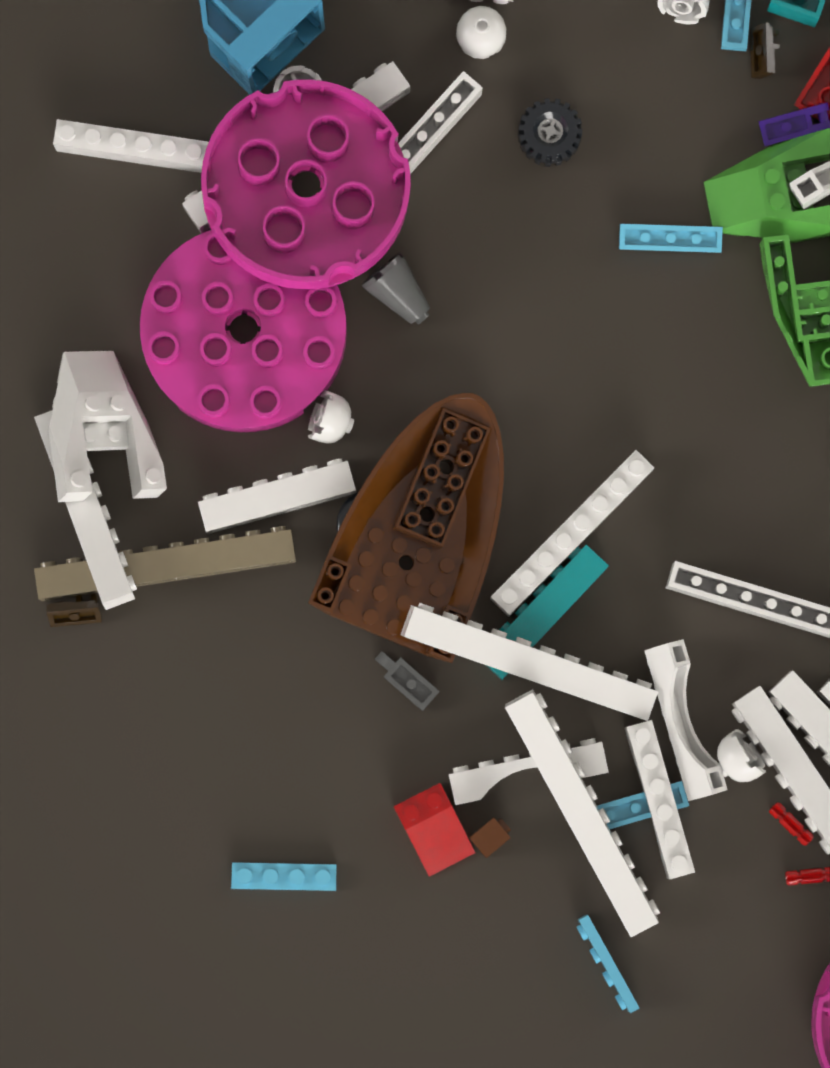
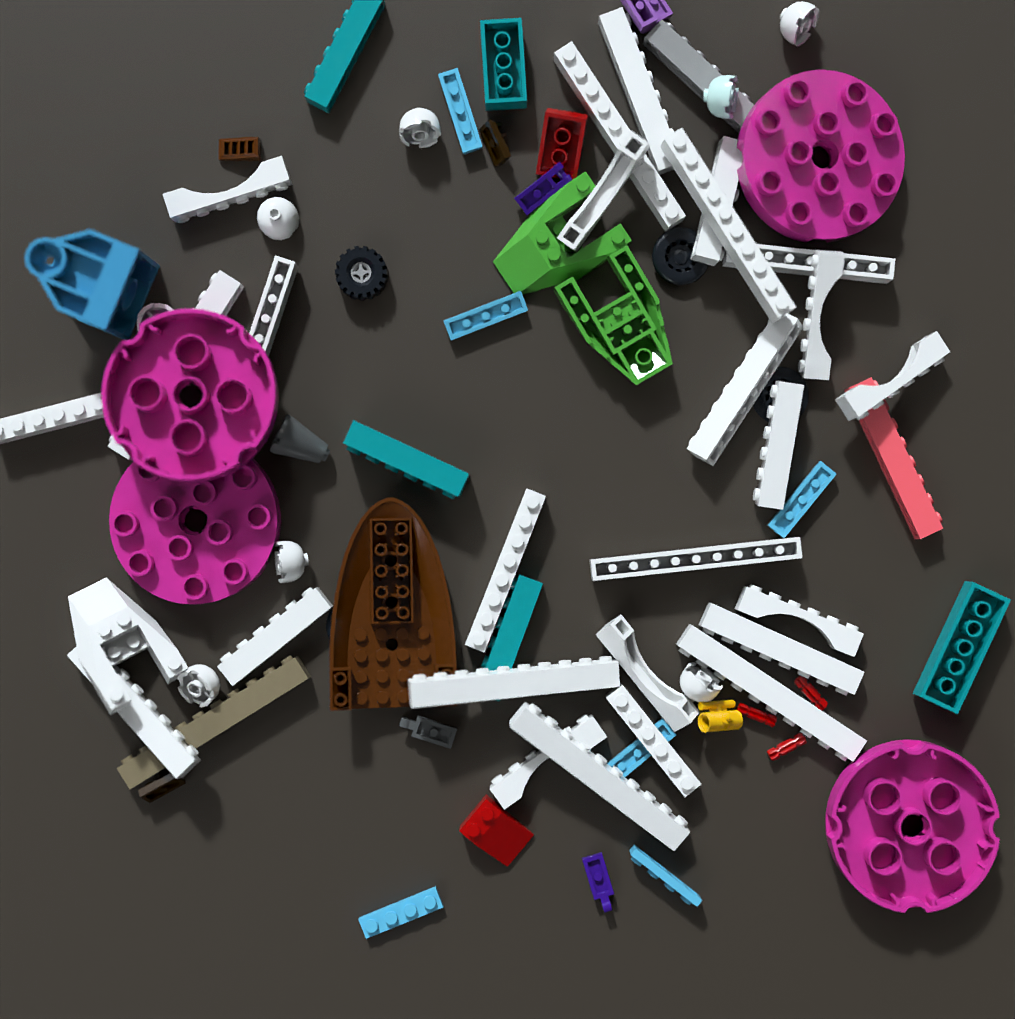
camera: 25 degrees left, 5 degrees up
(167, 514) = (199, 684): none -> white cylinder
(490, 836) = (539, 822): reddish brown brick -> none
(513, 360) = (407, 459): none -> teal brick
(529, 935) = (598, 879): none -> dark purple plate
(746, 805) = (718, 717): none -> yellow pin

